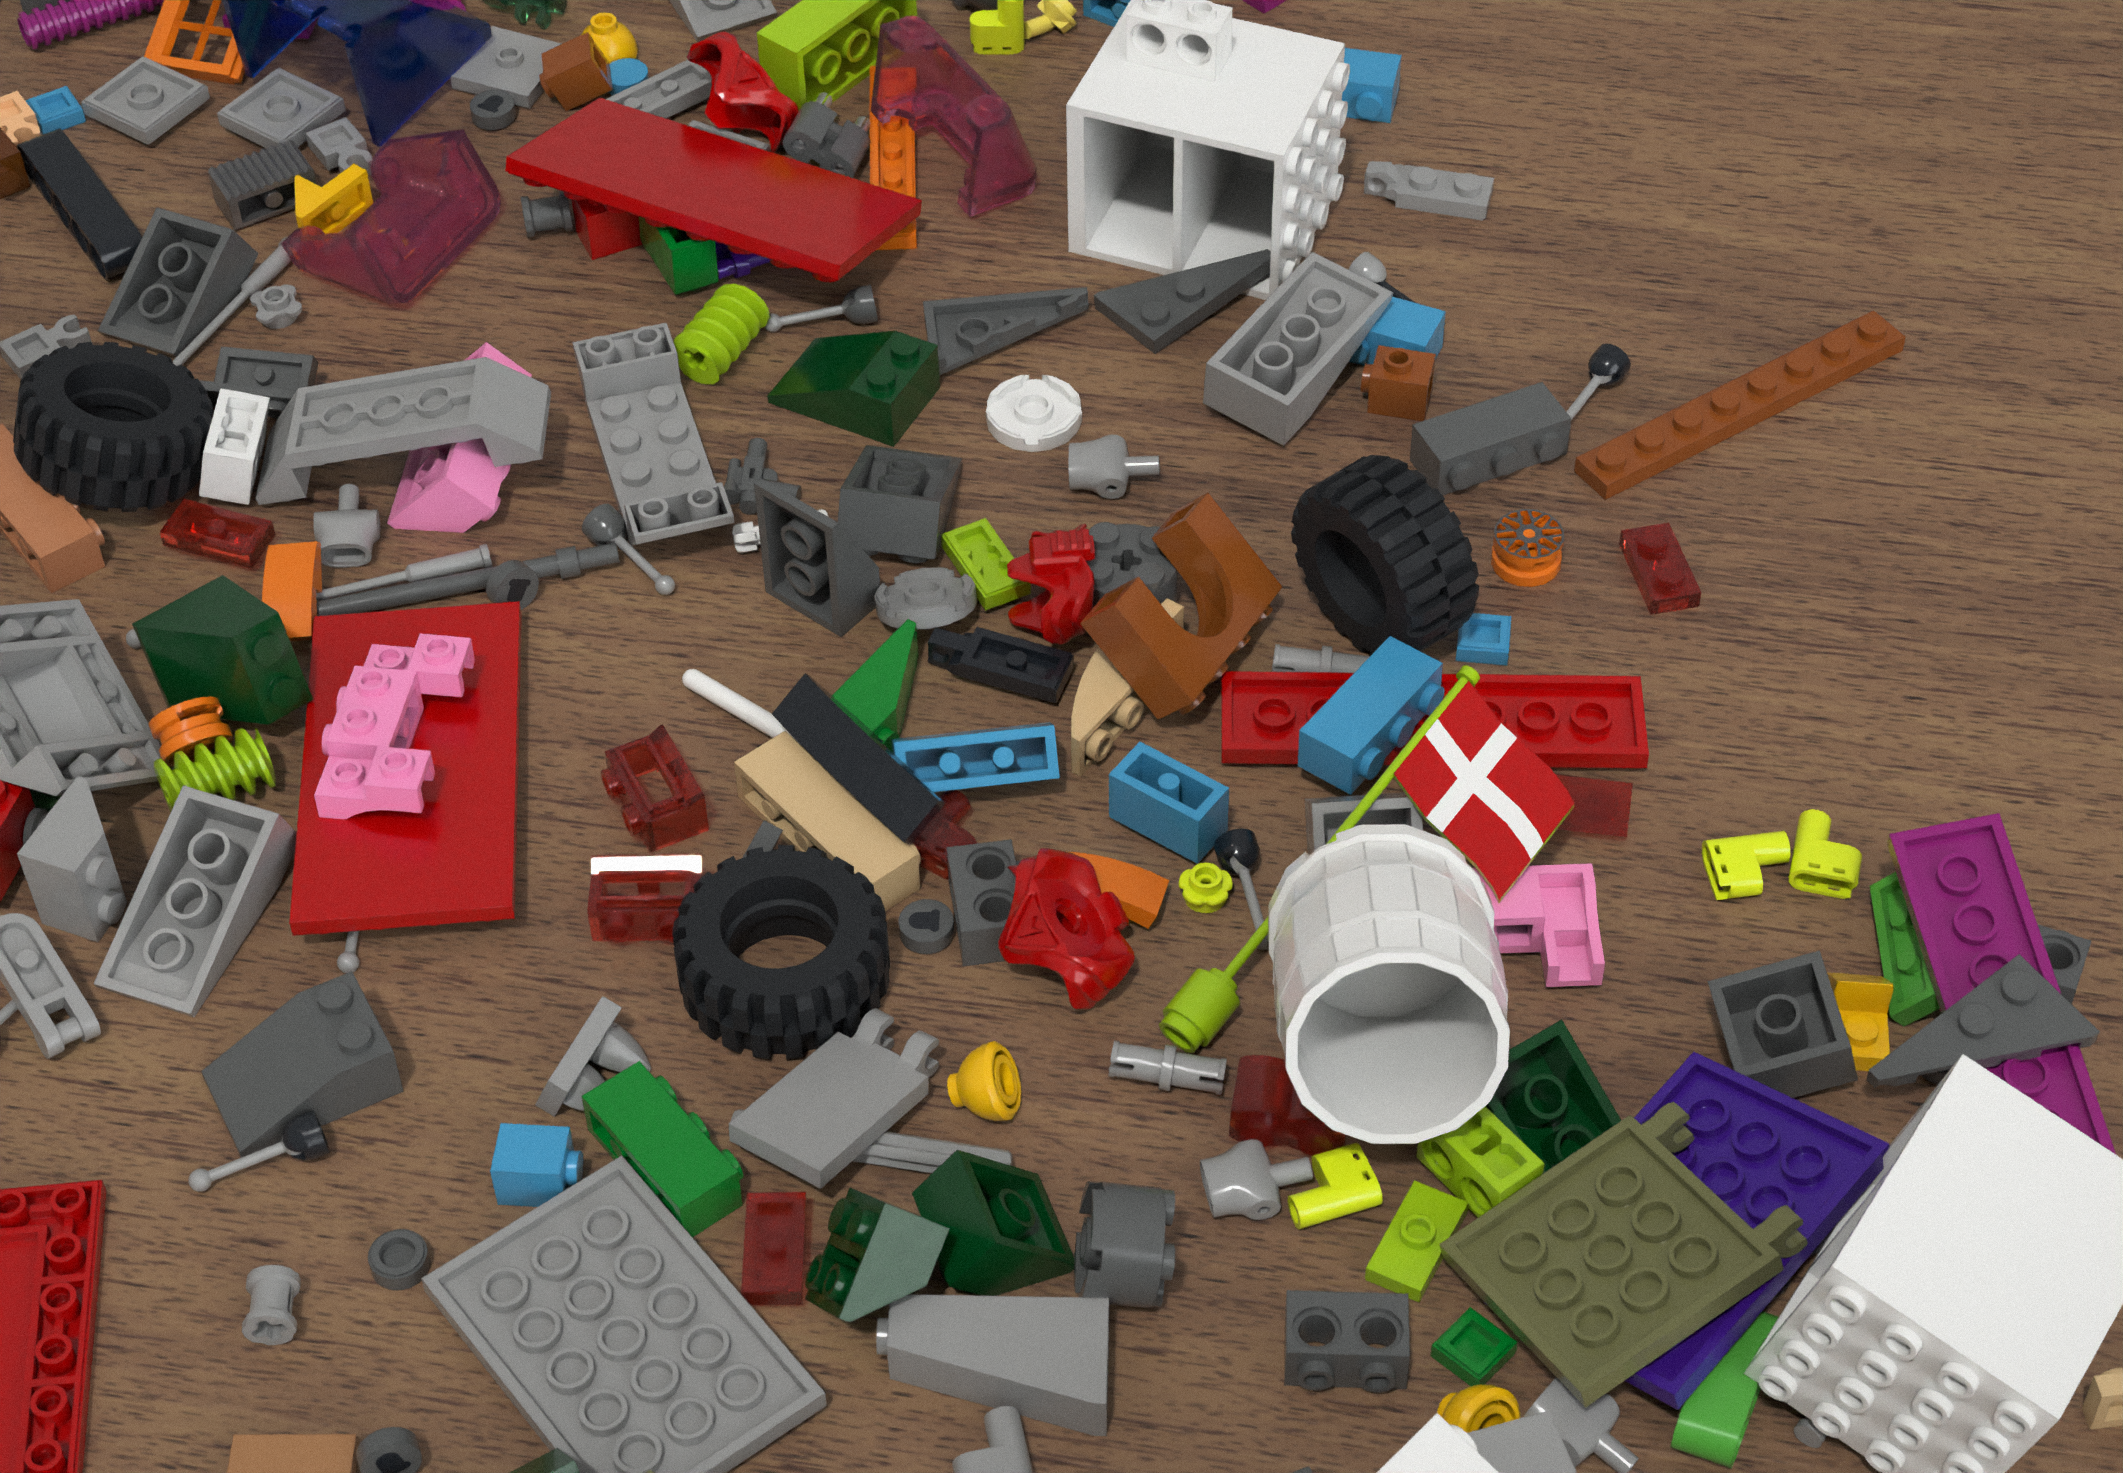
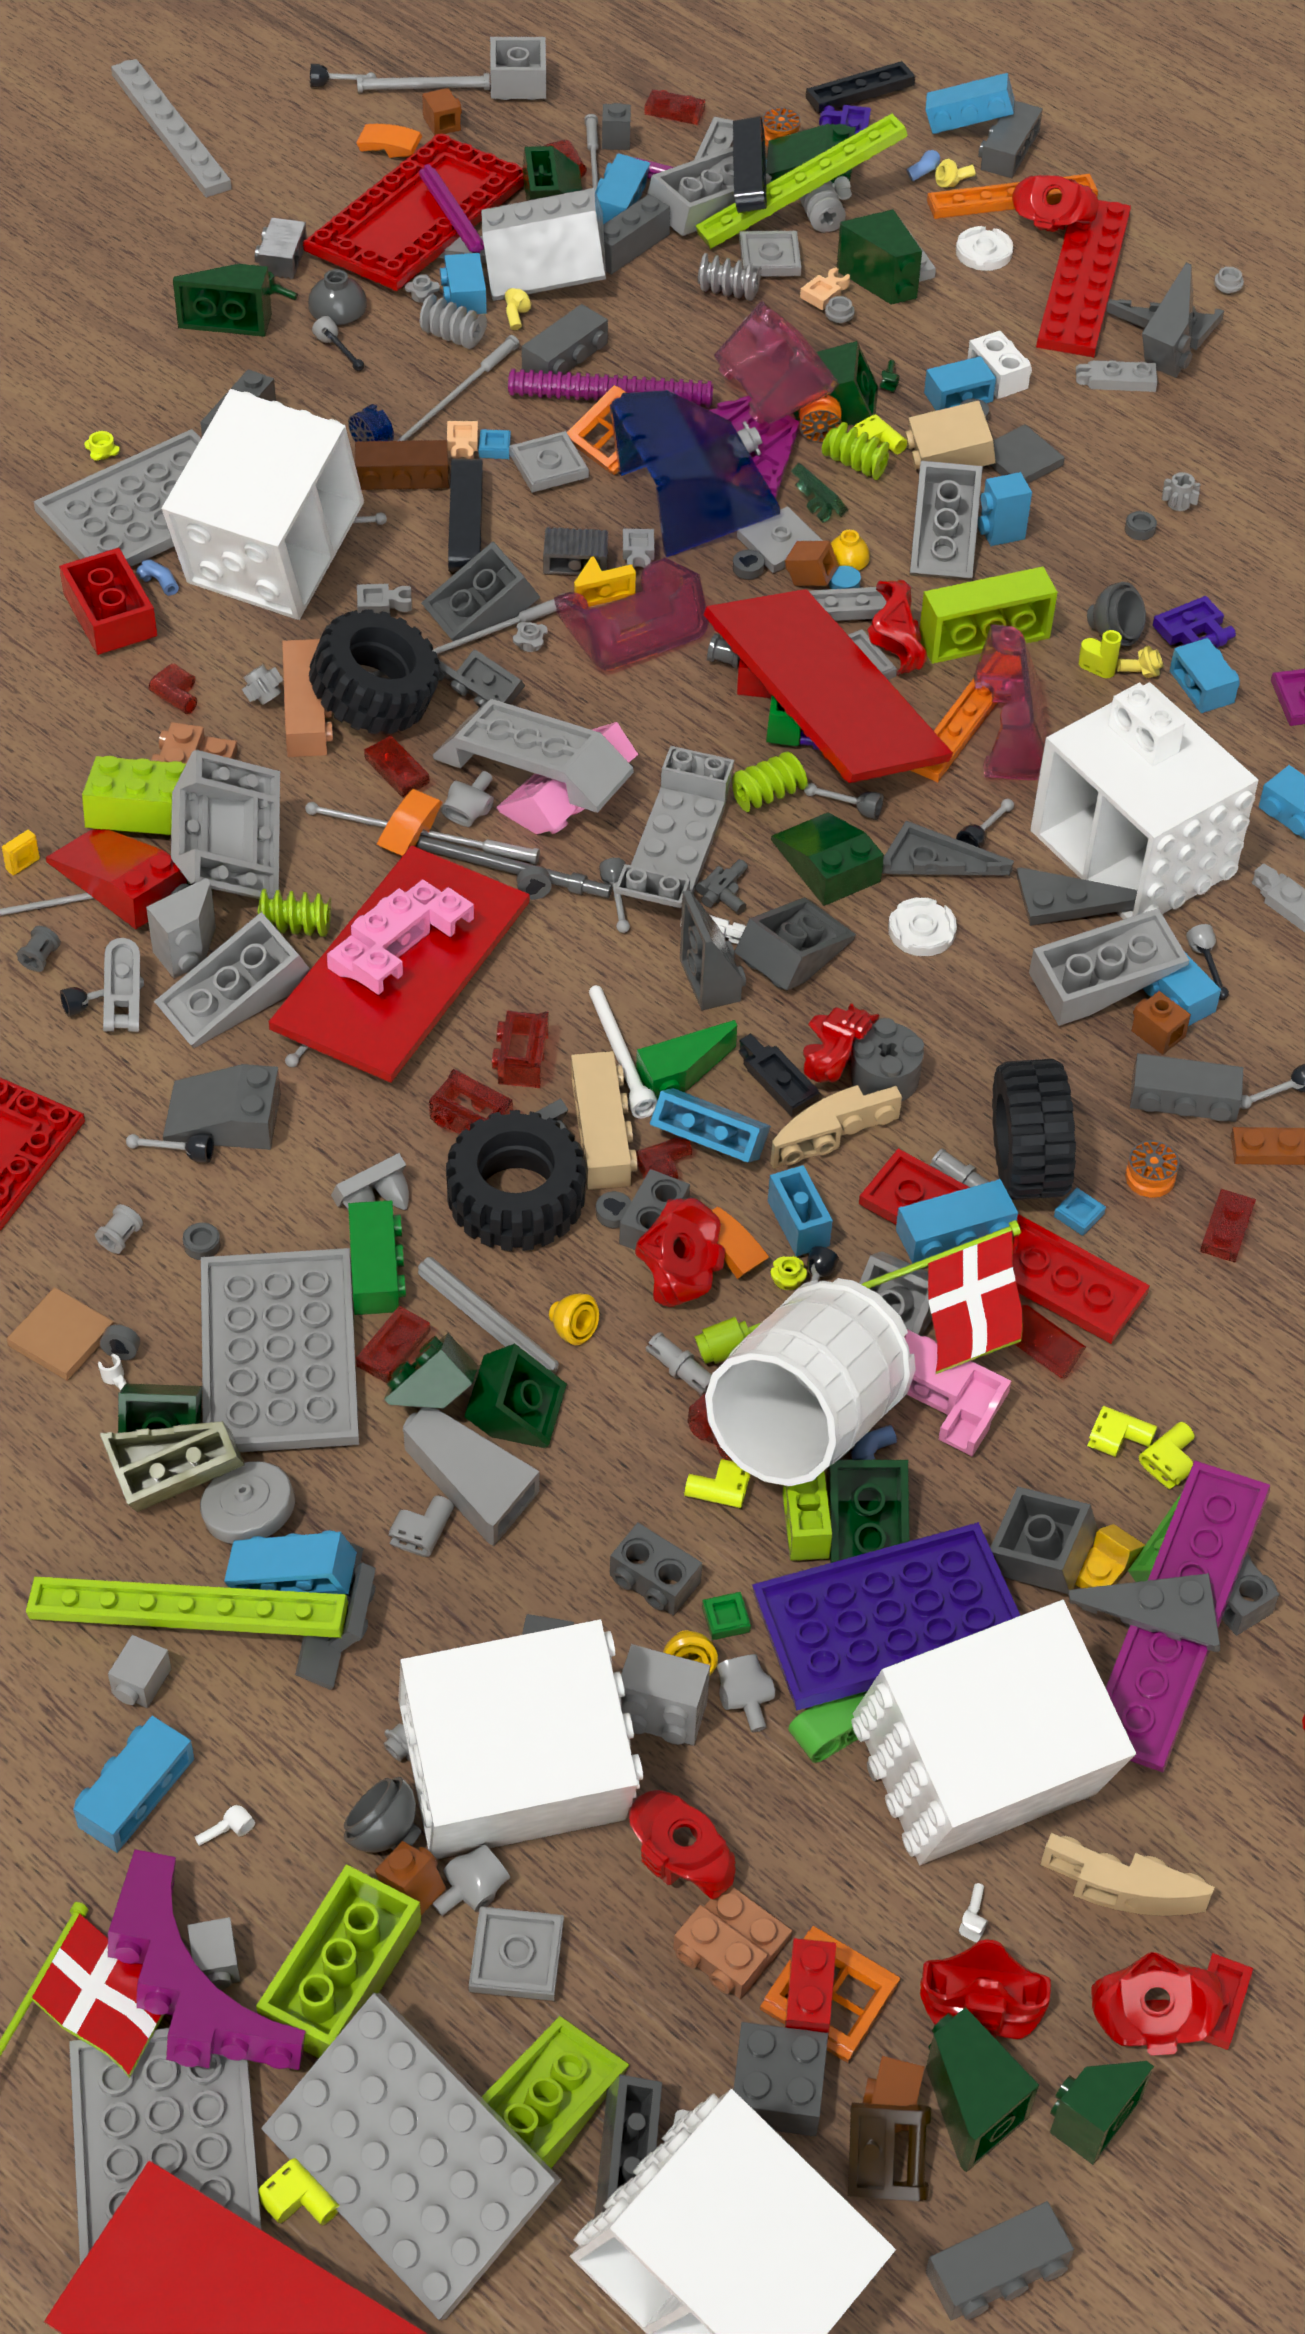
camera: 30 degrees right, 5 degrees up
(188, 725) = (296, 878): orange wheel -> none
(225, 648) = (337, 844): dark green slope -> none
(234, 446) = (438, 716): white brick -> none
(280, 110) = (621, 506): light grey plate -> none
(534, 1164) = (301, 1226): dark azure brick -> none
(820, 138) = (929, 684): dark grey piece -> none
(837, 1101) = (485, 1281): light grey tile -> none
(858, 759) = (635, 1090): black slope -> none
(926, 597) = (761, 1013): light grey tile -> none
(984, 557) = (815, 998): lime plate -> none
(1014, 278) = (975, 834): none -> hinge
(1105, 466) = (934, 983): light grey piece -> none
(1123, 1244) = (568, 1446): dark grey brick -> none
(1231, 596) = (939, 1101): dark orange arch -> none
(1247, 1182) = (674, 1452): light grey piece -> none
(1410, 1246) = (743, 1539): lime plate -> none
(1617, 1255) = (828, 1606): olive plate -> none

